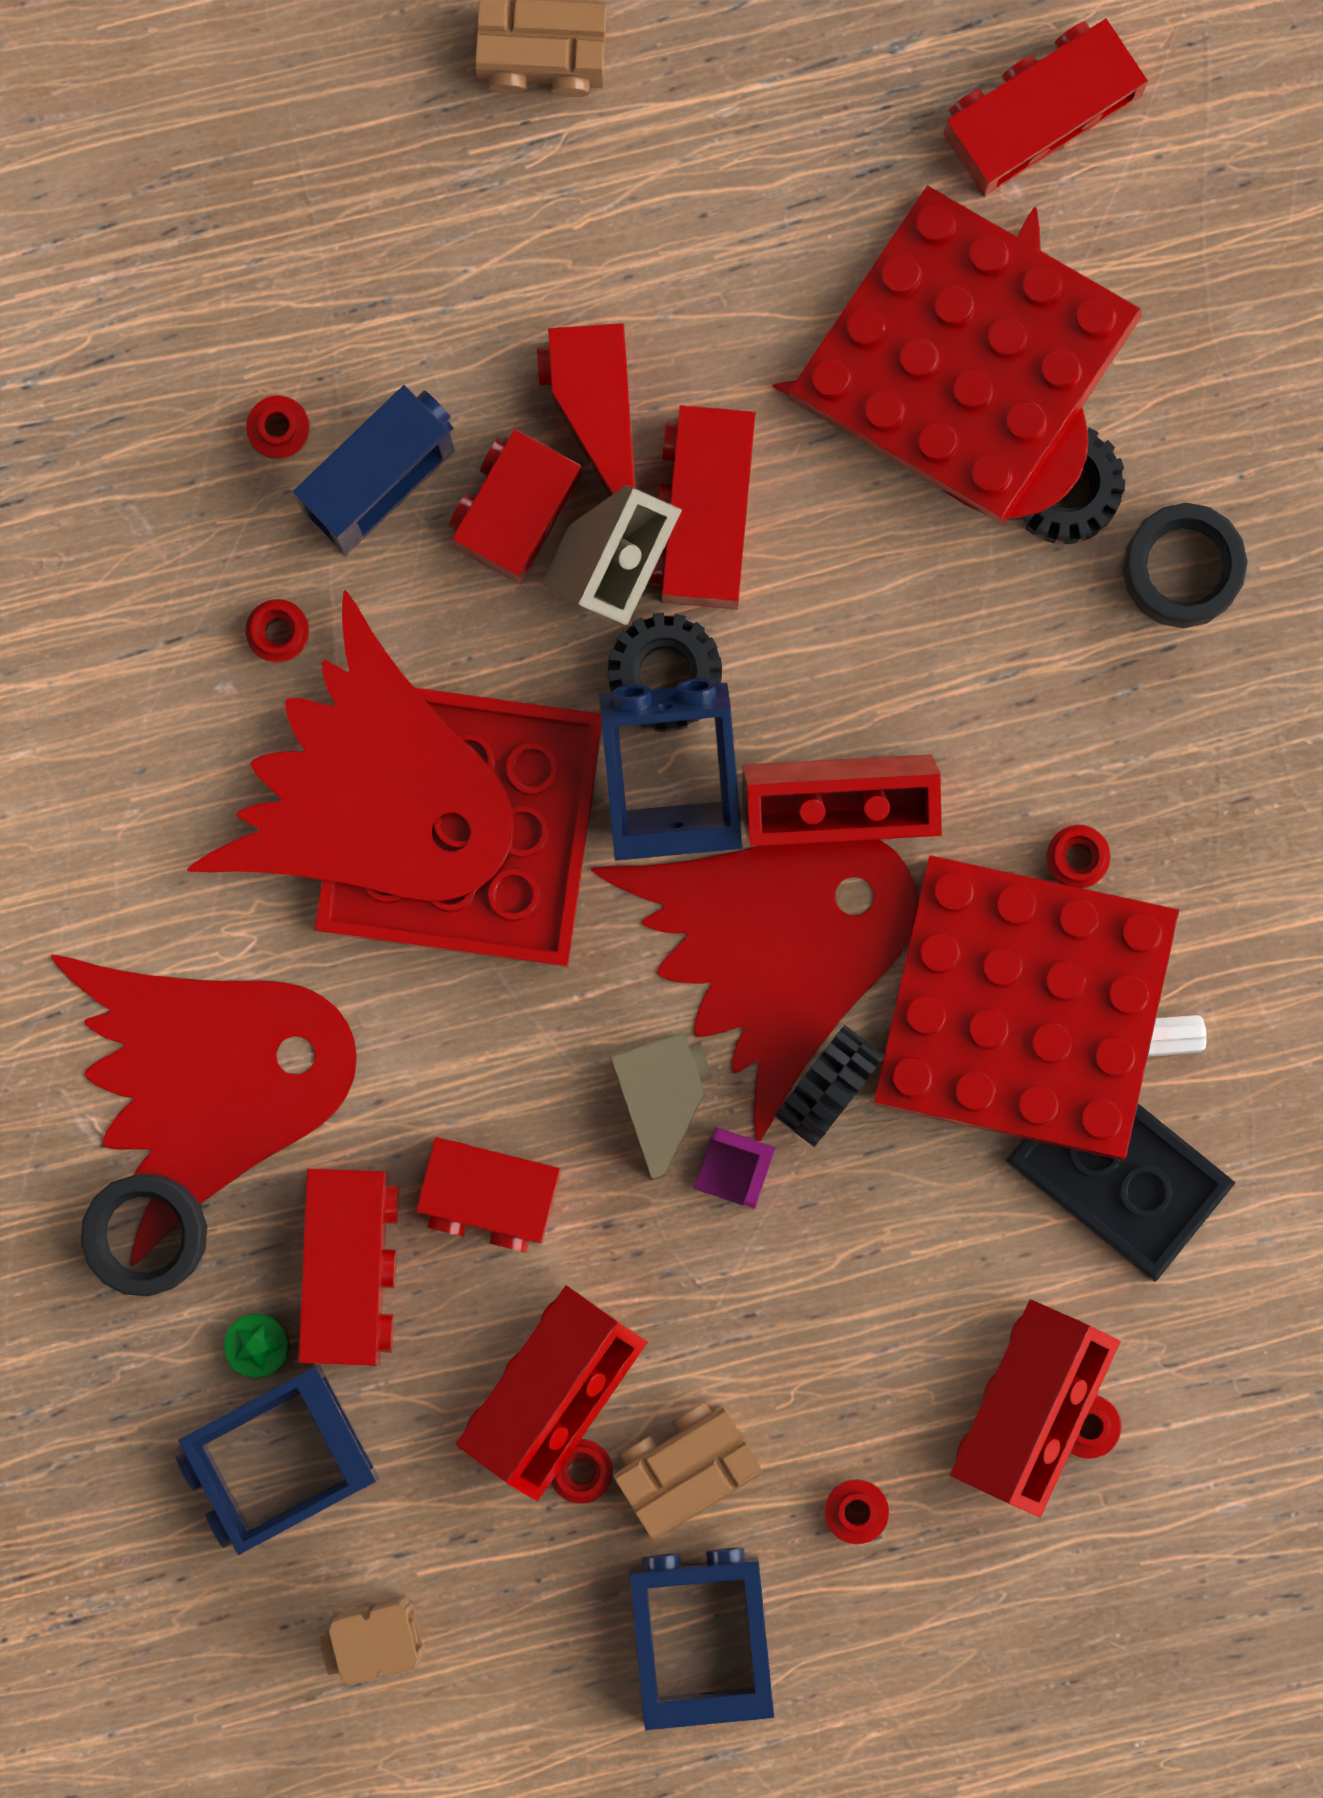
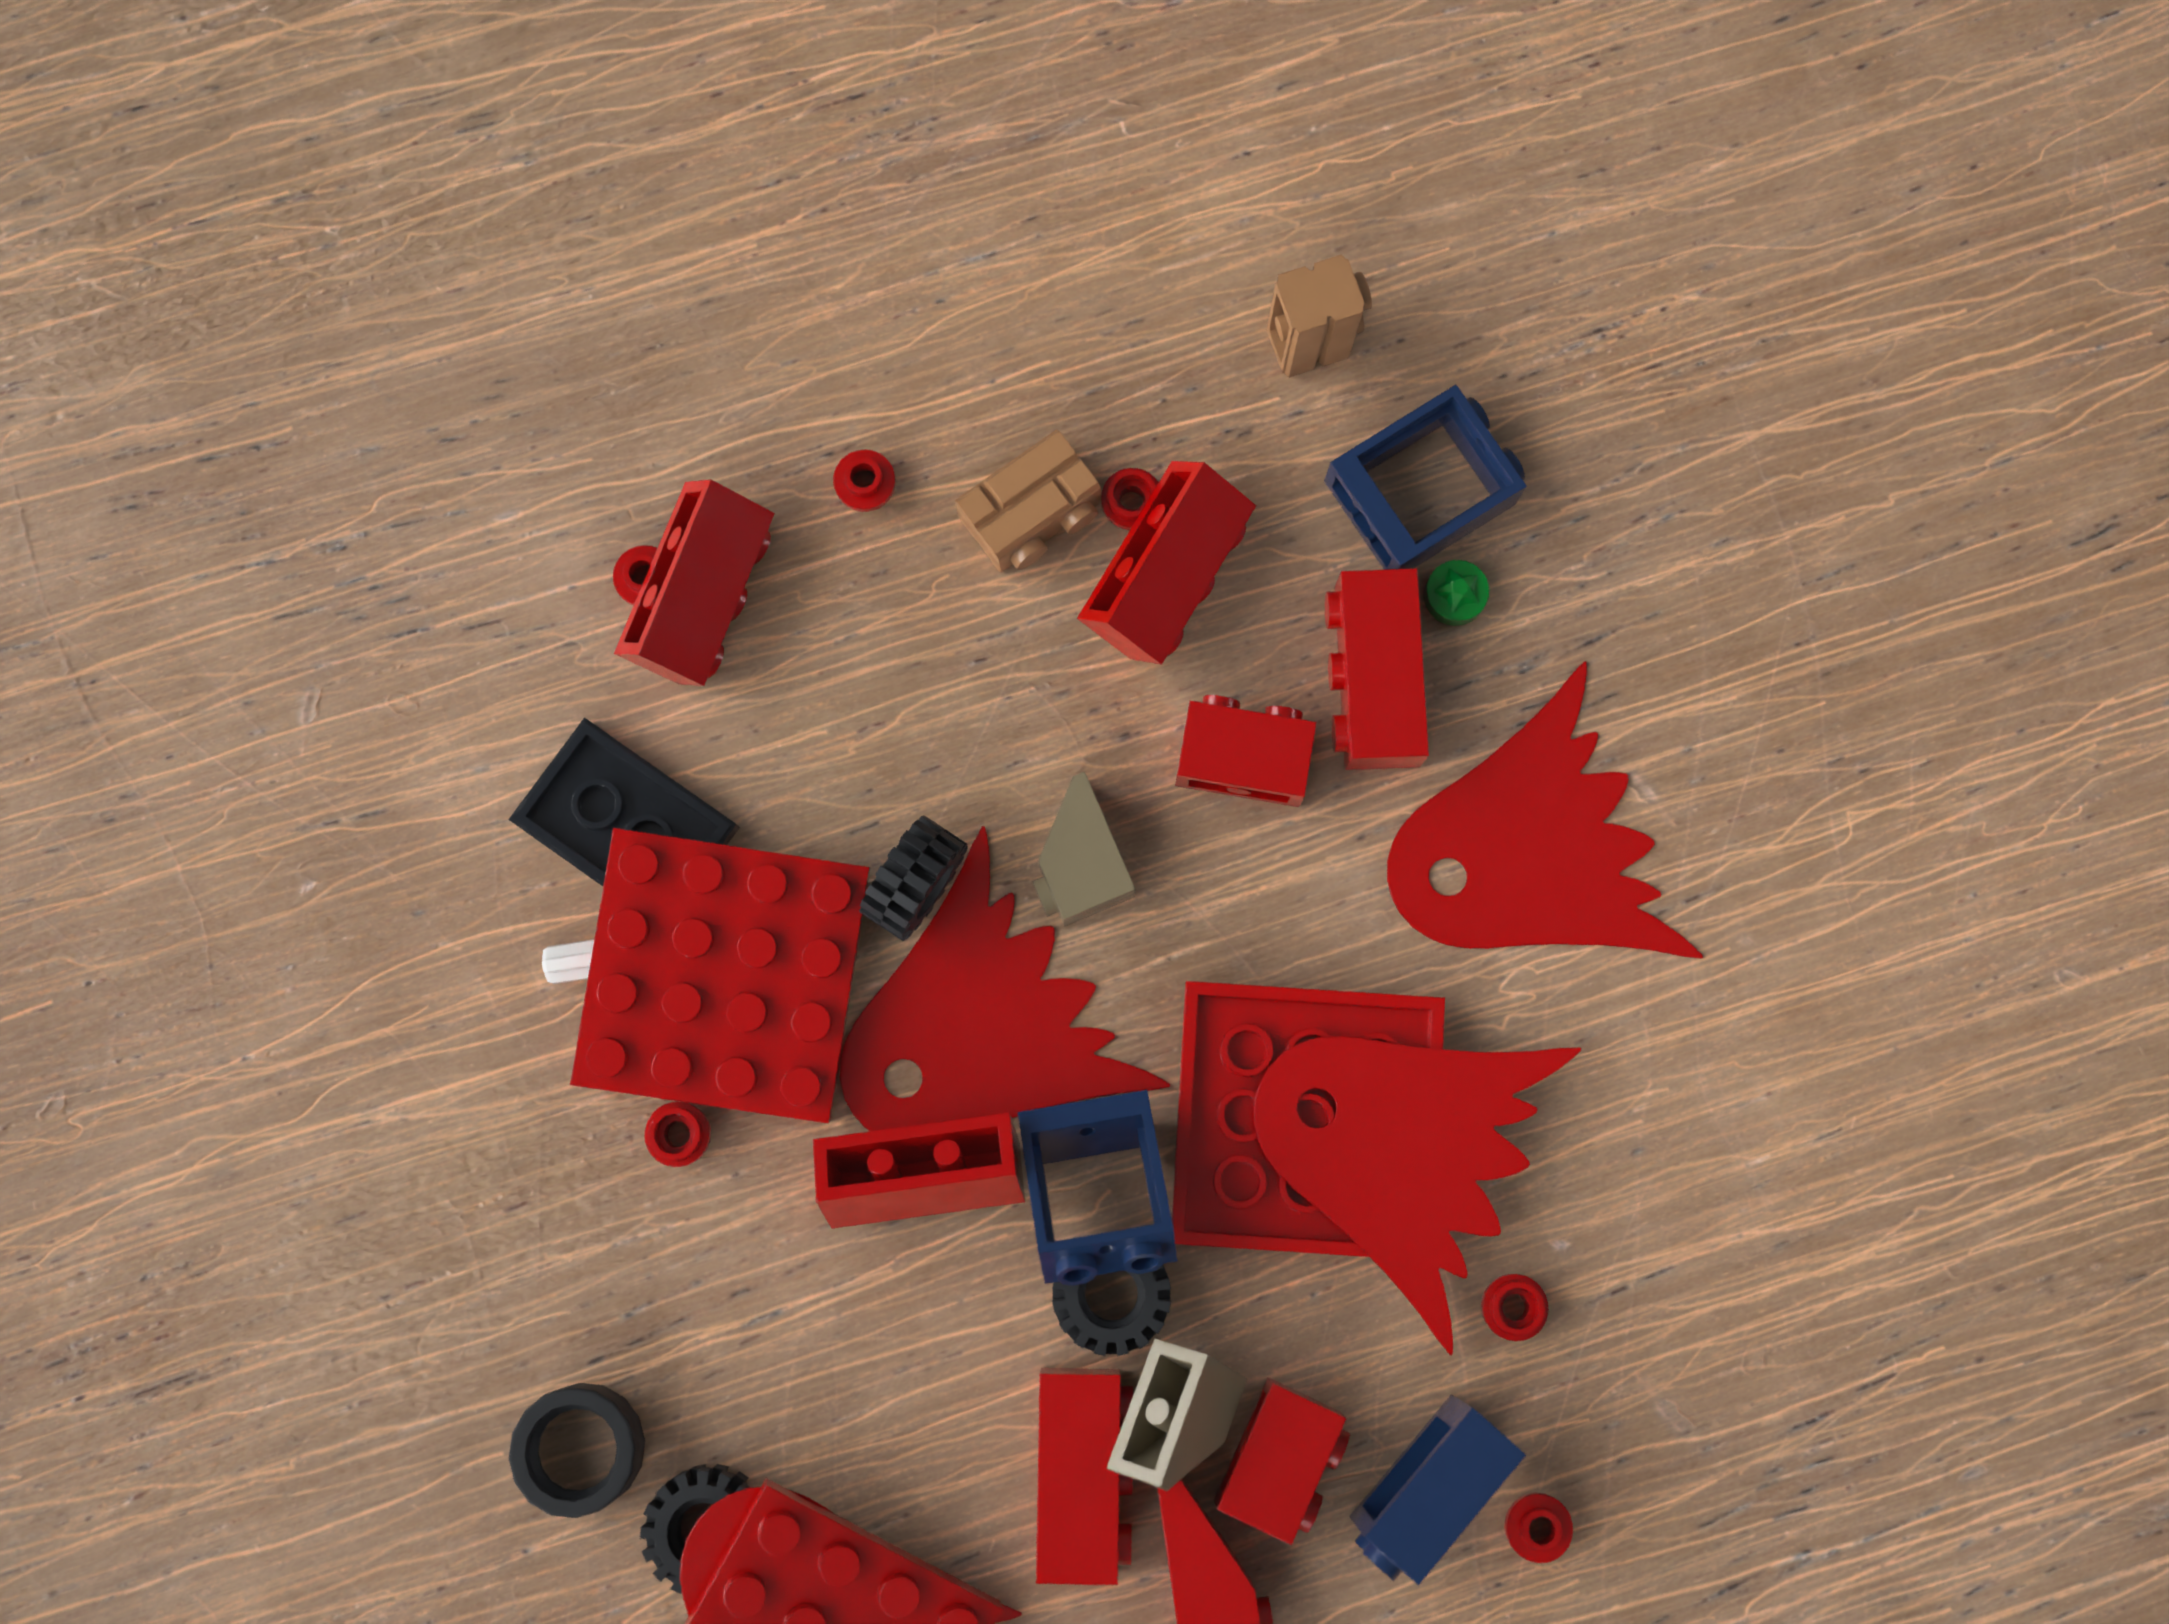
camera: 175 degrees right, 5 degrees down
(106, 1265) = (1608, 650): black tyre -> none
(705, 1707) = (994, 291): dark blue window -> none
(734, 1168) = (1002, 795): magenta panel -> none

